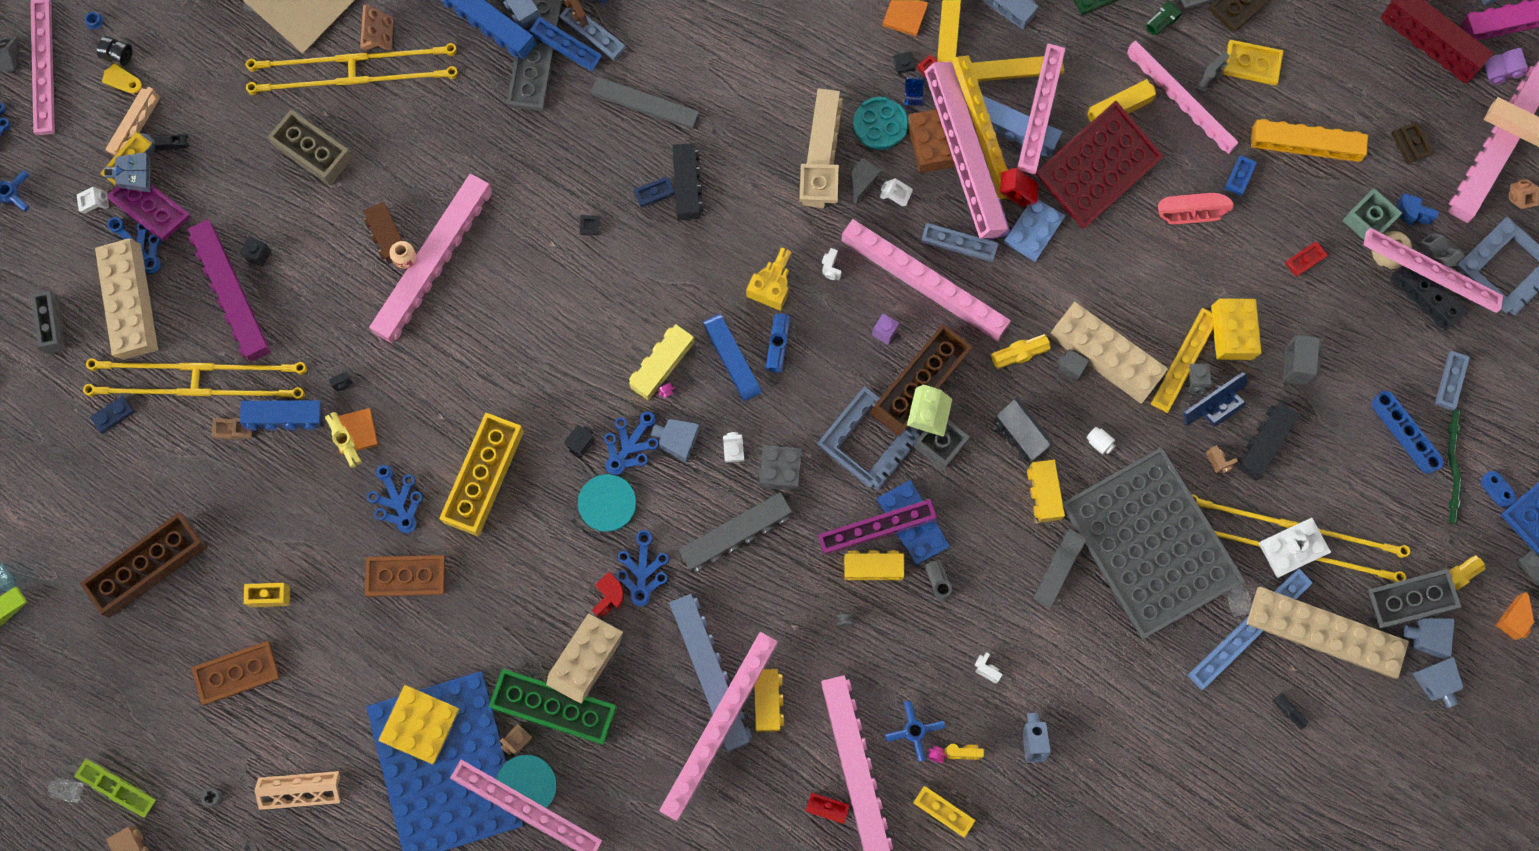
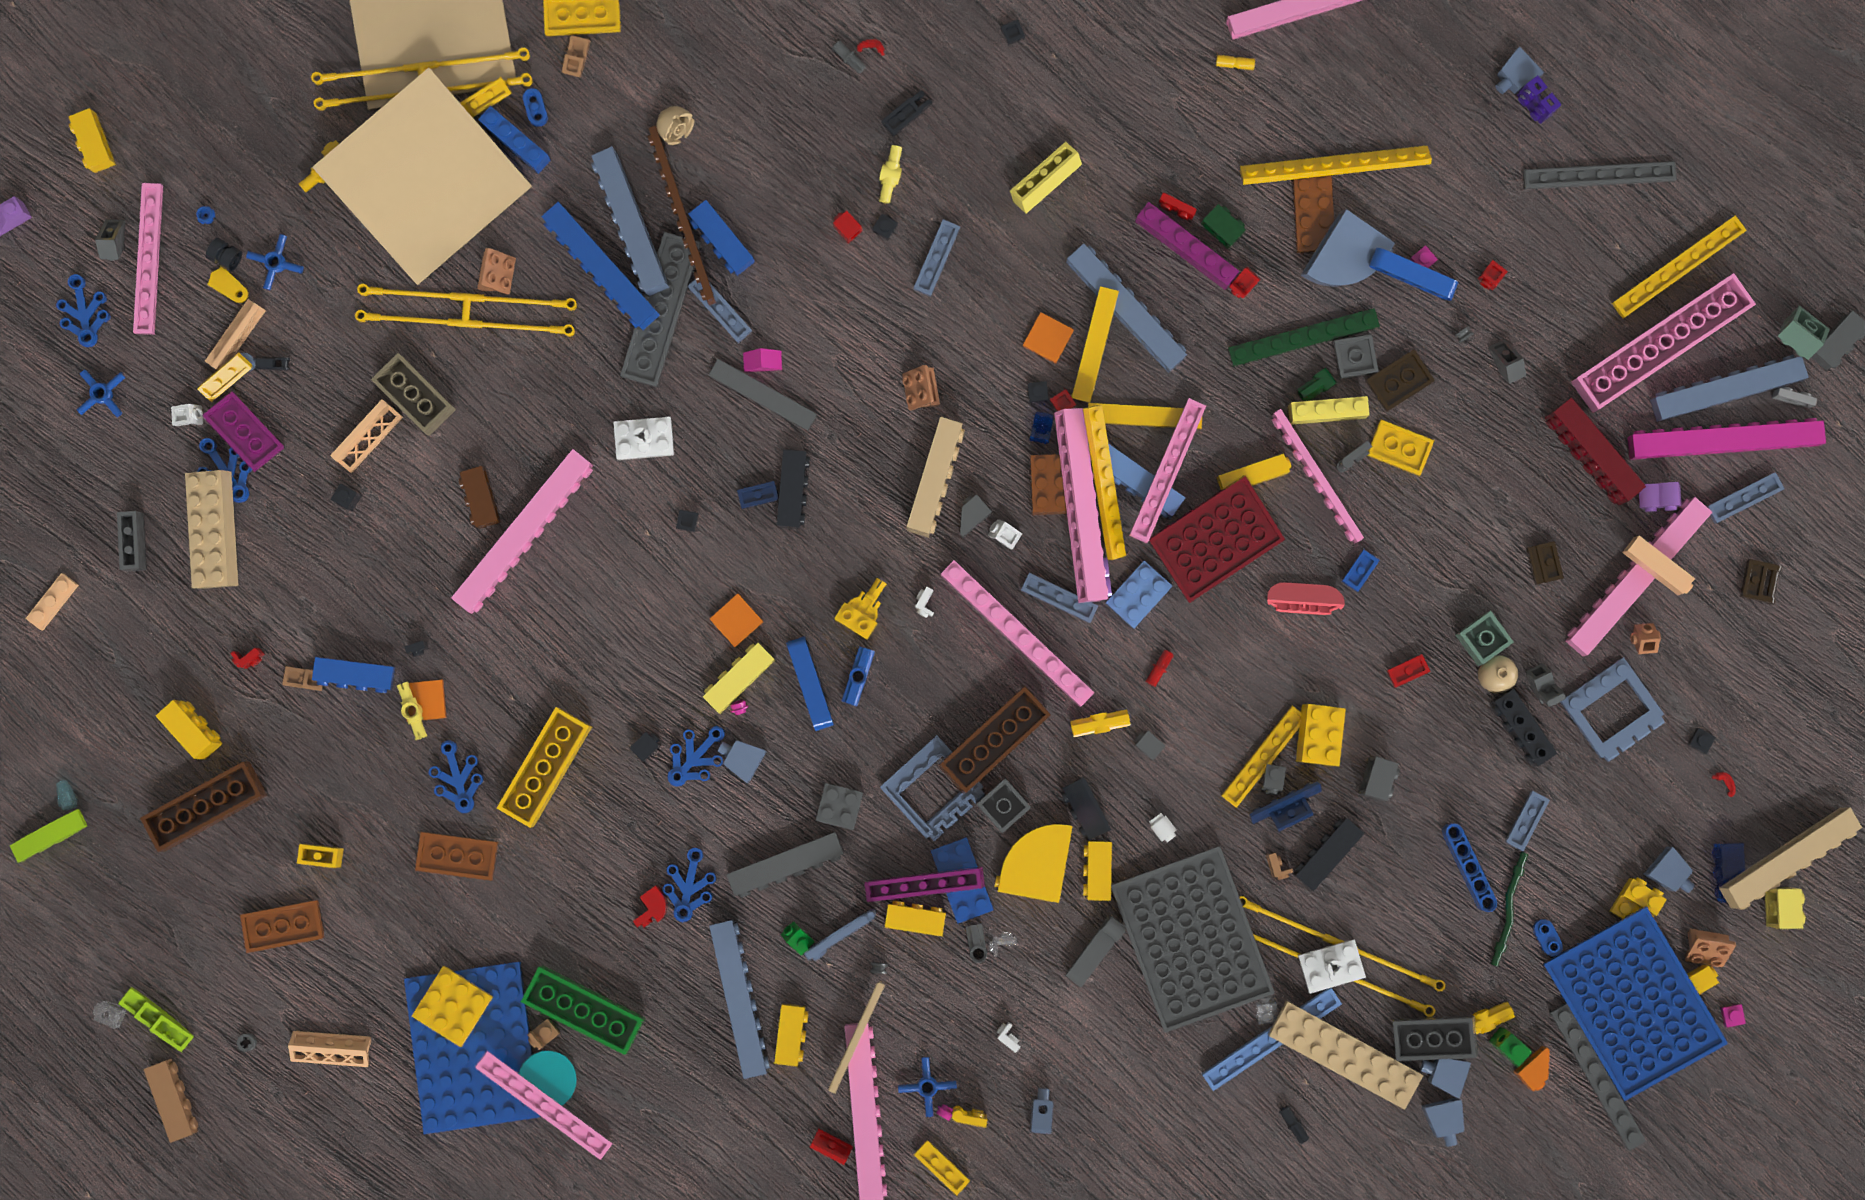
camera: 10 degrees right, 10 degrees up
(112, 414) = (186, 645): dark blue plate -> none
(122, 490) = (189, 729): none -> yellow brick
(131, 172) = (228, 396): sand blue torso -> none
(161, 46) = (269, 257): none -> blue bar
(175, 417) = (252, 658): none -> red bracket
(194, 390) = (274, 610): yellow bar -> none
(229, 290) = (315, 534): magenta brick -> none
(262, 191) = (361, 431): none -> light nougat fence
(402, 254) = (488, 531): light nougat head -> none
(537, 158) = (643, 438): none -> white plate
(565, 44) = (689, 320): blue plate -> none
(584, 658) = (619, 969): tan brick -> none
(607, 503) = (663, 813): teal tile -> none
(639, 71) = (762, 360): none -> dark pink slope
(651, 310) = (736, 620): none -> orange tile
(718, 727) = (738, 1057): bright pink brick -> none
(733, 447) = (797, 777): white bracket -> none
(759, 603) = (797, 938): none -> green bracket
(782, 603) = (820, 948): none -> sand blue hinge
(793, 73) = (921, 388): none -> nougat bracket
(819, 183) = (923, 523): tan plate -> none
(835, 688) = (856, 1037): none -> tan tile
(880, 123) = (1001, 455): teal tile -> none
(885, 329) = (968, 679): medium lavender brick -> none
(930, 410) = (995, 778): yellowish green slope -> none
(966, 572) = (1005, 939): none -> clear bracket
(984, 494) = (1036, 864): none -> yellow brick
(1019, 187) = (1129, 552): red brick -> none
(1067, 293) = (1159, 668): none -> red axle
(1108, 352) = (1187, 738): tan brick -> none
(1180, 37) = (1328, 410): none -> light yellow brick
(1309, 140) = (1438, 544): light orange brick -> none
(1412, 210) = (1526, 636): blue brick -> none
(1433, 270) = (1531, 707): bright pink plate -> none
(1490, 598) = (1510, 1047): none -> green torso

